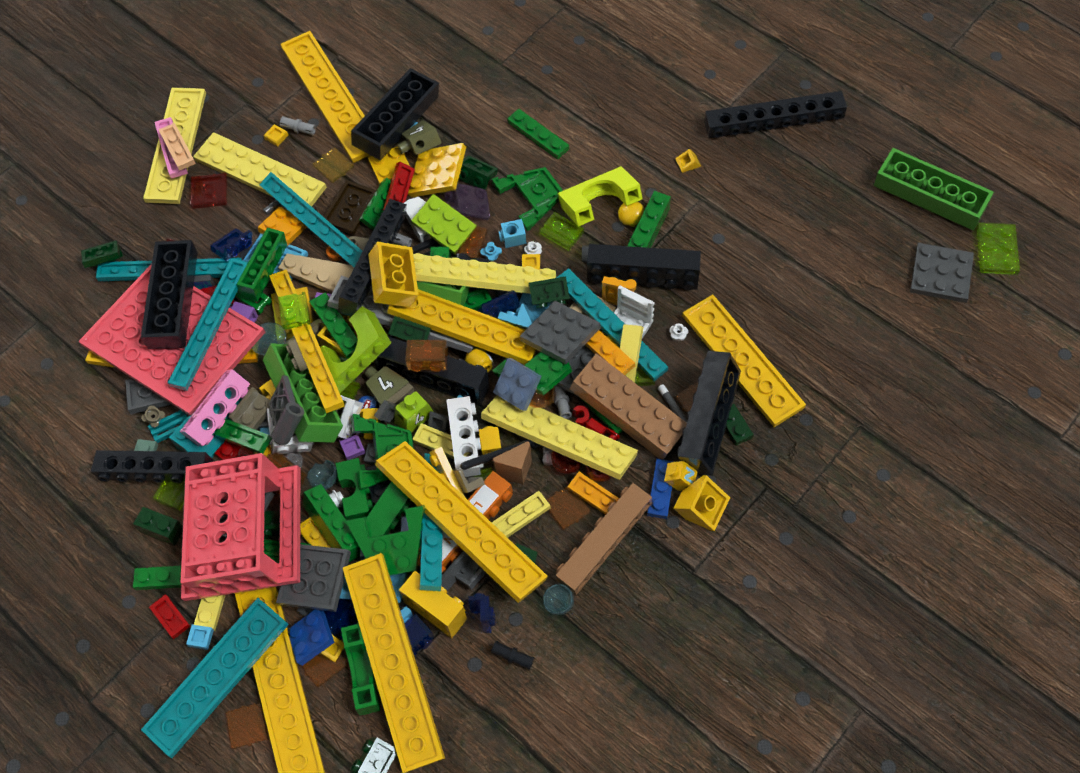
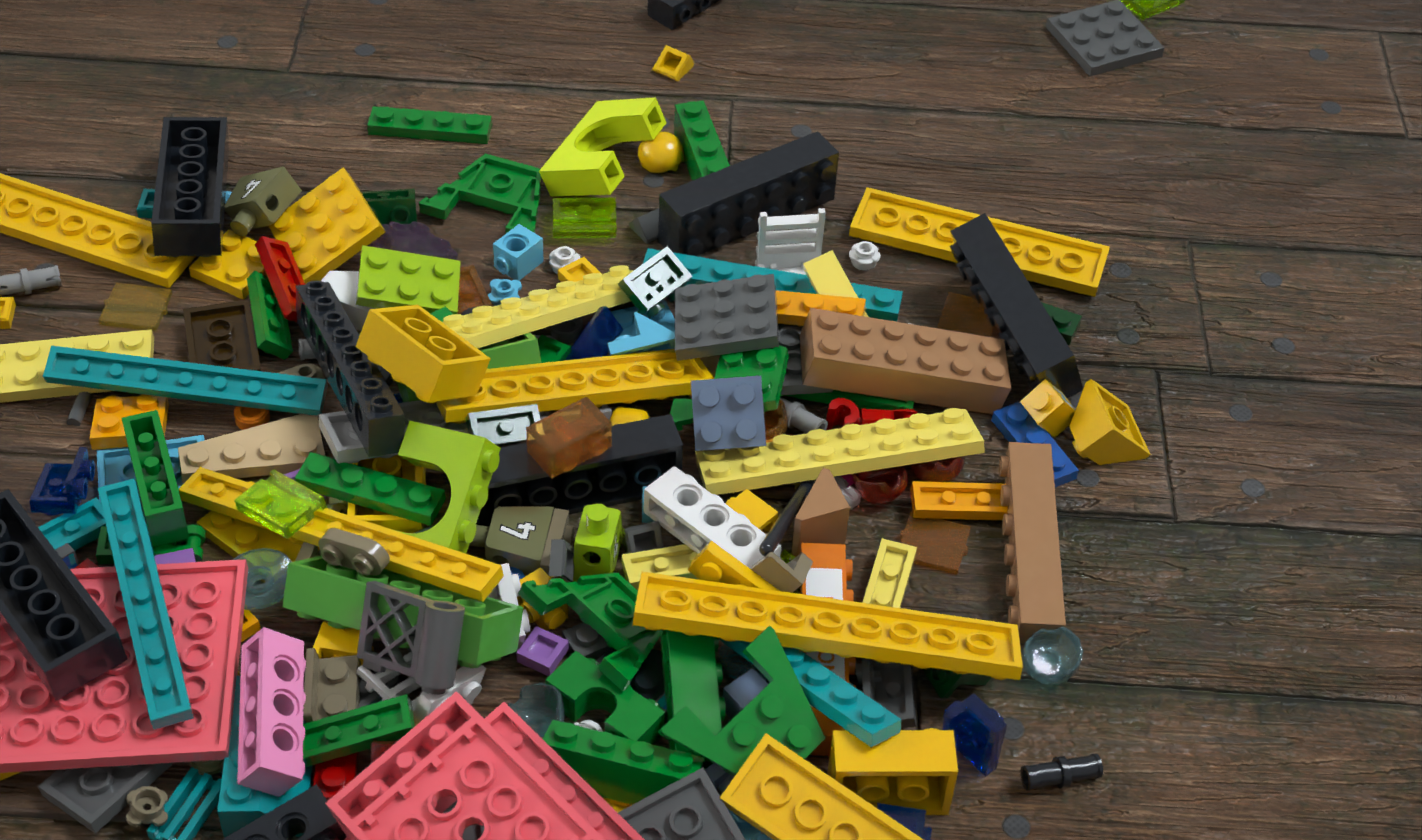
camera: 45 degrees left, 15 degrees down
(610, 288) = (737, 237): light orange plate -> none

